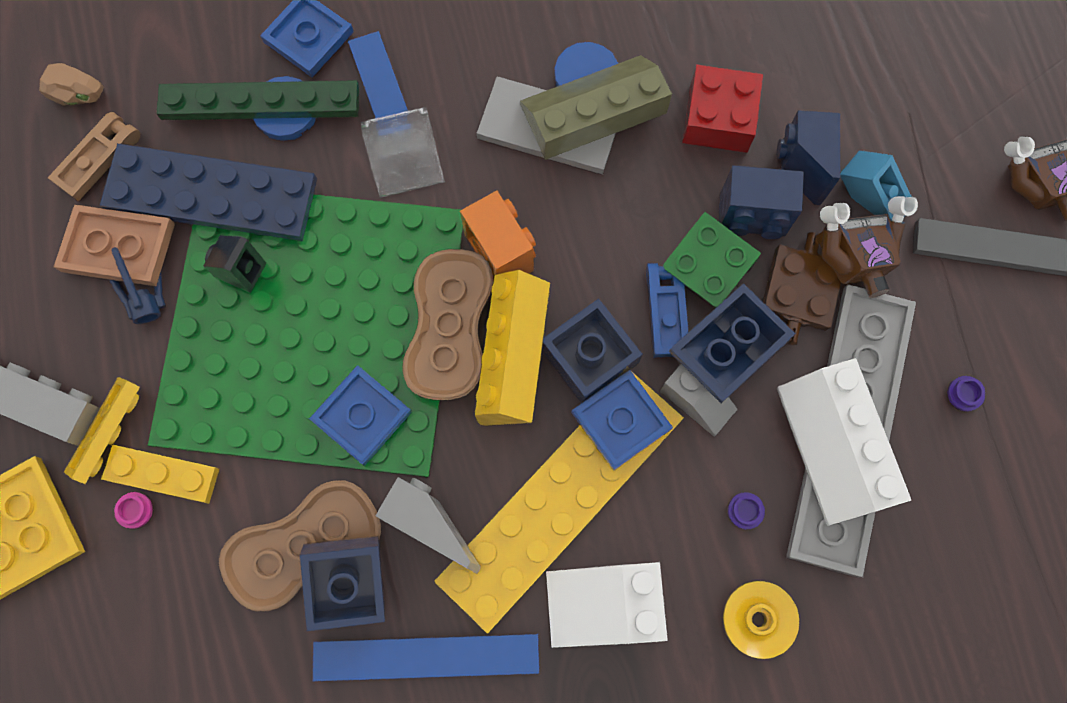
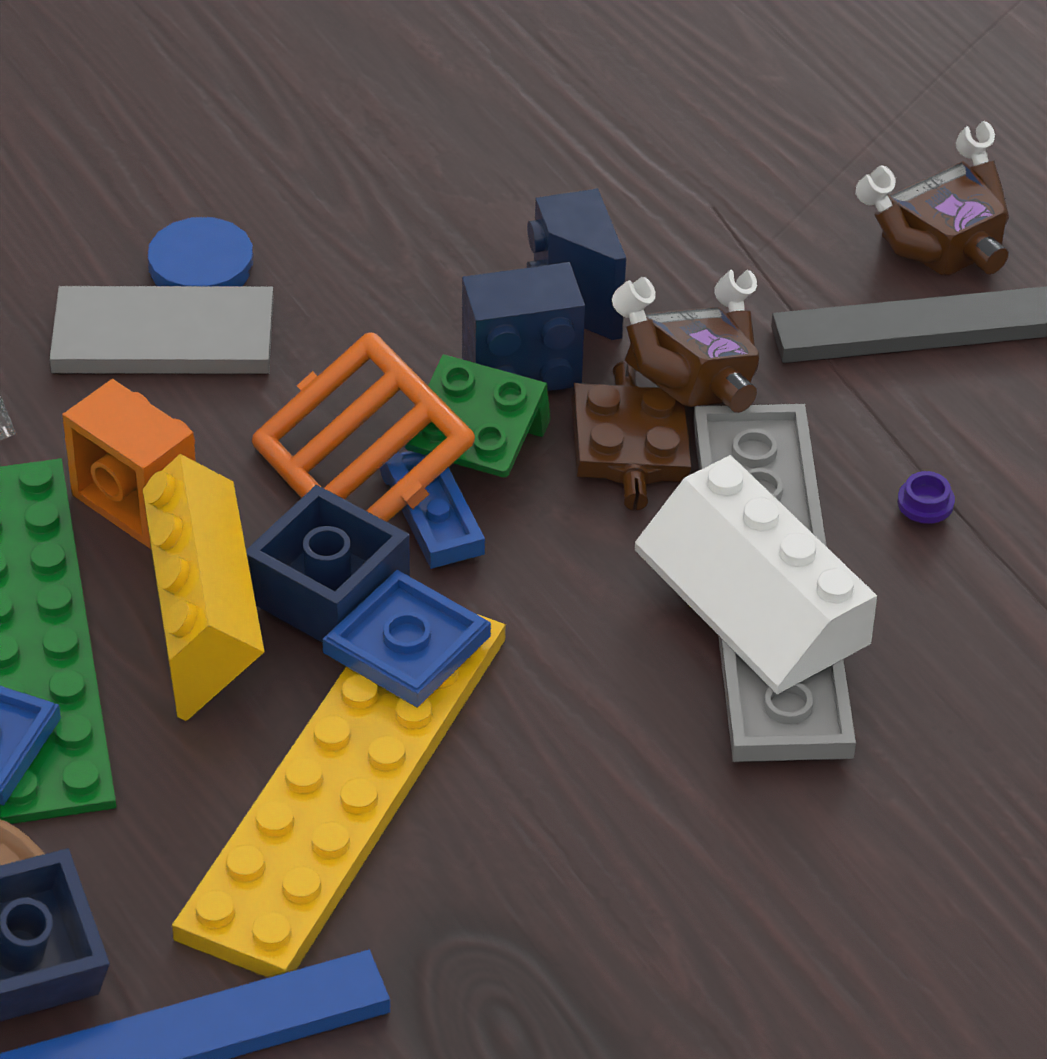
camera: 20 degrees left, 30 degrees down
(424, 518) = (135, 839): light grey slope -> none
(446, 349) = (90, 605): medium nougat plate -> none
(597, 105) = (233, 283): olive slope -> none
(606, 605) = (471, 881): white slope -> none
(683, 256) = (396, 377): none -> orange bar
(697, 401) = (518, 587): light grey slope -> none
(722, 108) = (424, 246): red brick -> none
(732, 343) = (548, 492): dark blue slope -> none
(746, 510) = (647, 715): dark purple plate -> none
(779, 624) = (715, 818): yellow dish -> none
(874, 181) = (686, 275): dark azure slope -> none

